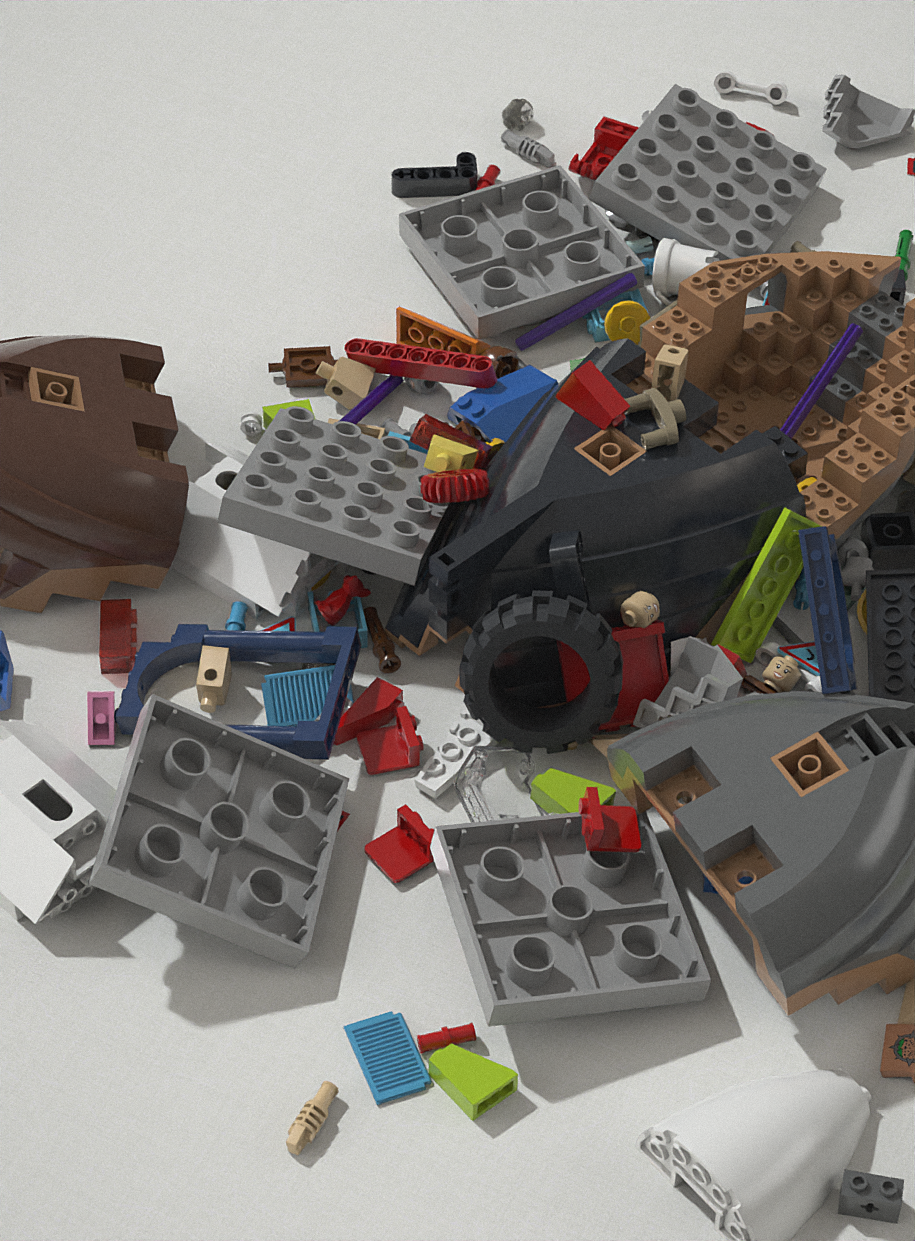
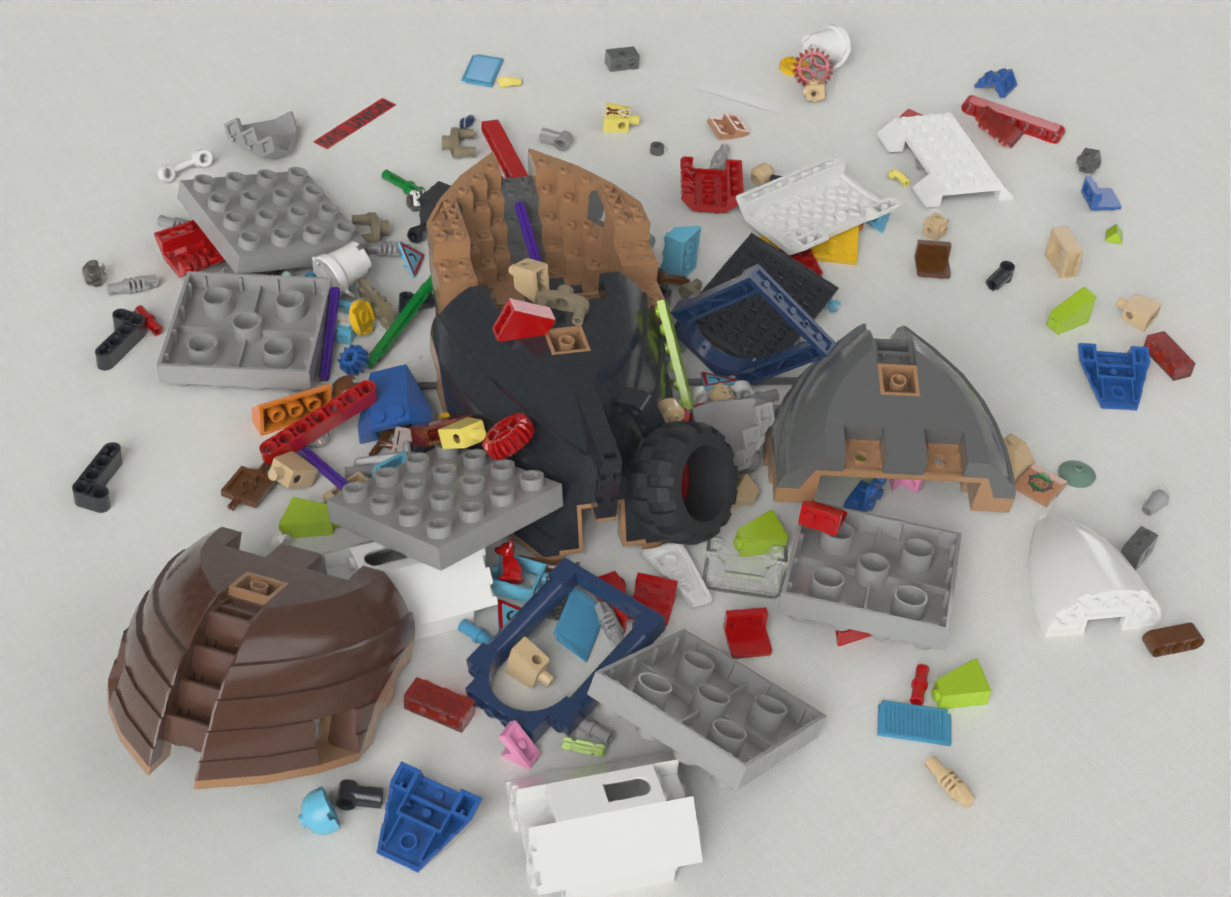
camera: 65 degrees left, 5 degrees down
(233, 260) = (90, 488): none -> black beam
(557, 350) = (353, 360): none -> blue gear

